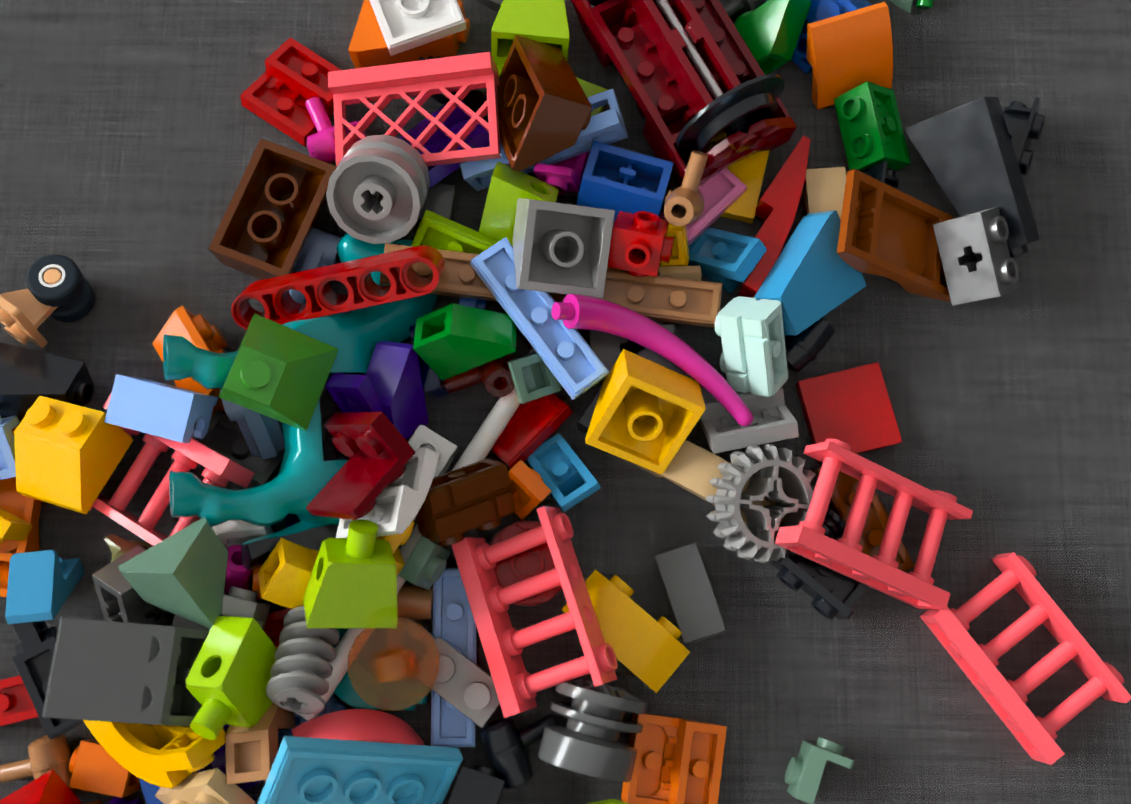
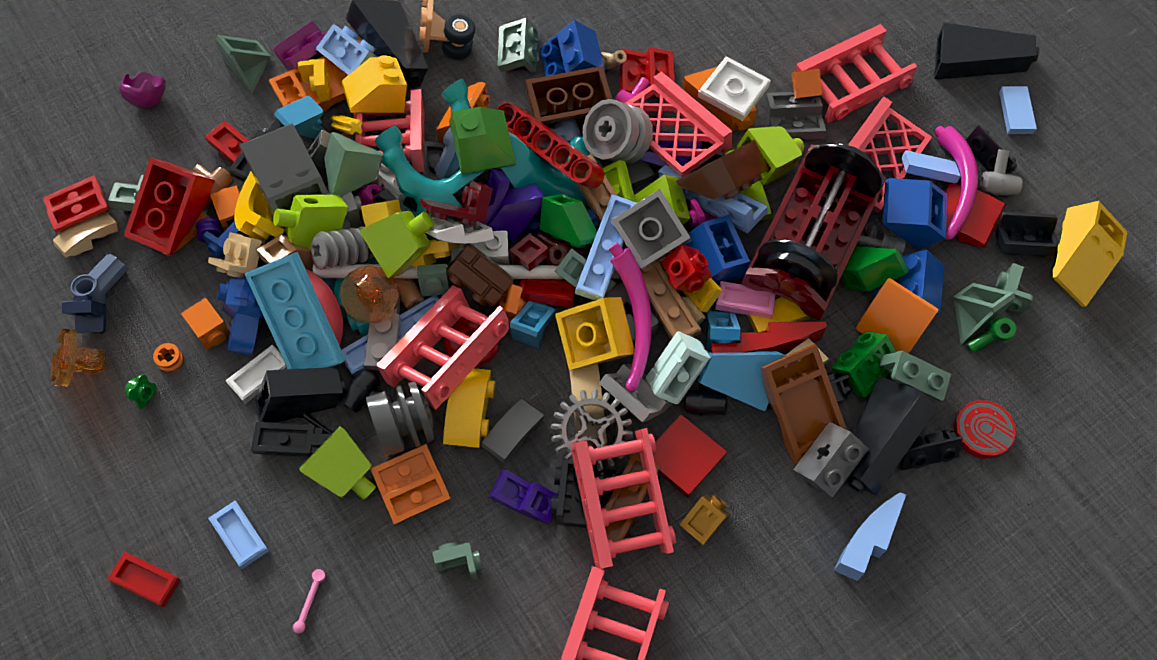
camera: 55 degrees right, 15 degrees down
(104, 533) = (346, 124): none -> yellow axle
(133, 221) = (518, 46): none -> sand green bracket
(159, 409) = (426, 106): light blue hinge -> none
(201, 163) = (571, 50): none -> blue slope
(245, 122) = (612, 61): none -> tan arm
(469, 415) = (530, 253): none -> dark red panel
(686, 202) = (733, 280): medium nougat piece -> none
(780, 635) = (523, 497): none -> dark purple slope
(938, 88) = (916, 374): none -> sand green bracket
(944, 442) = (705, 518): none -> pearl gold bracket
(1028, 66) = (985, 429): none -> tile
(1078, 279) = (870, 539): none -> light blue slope

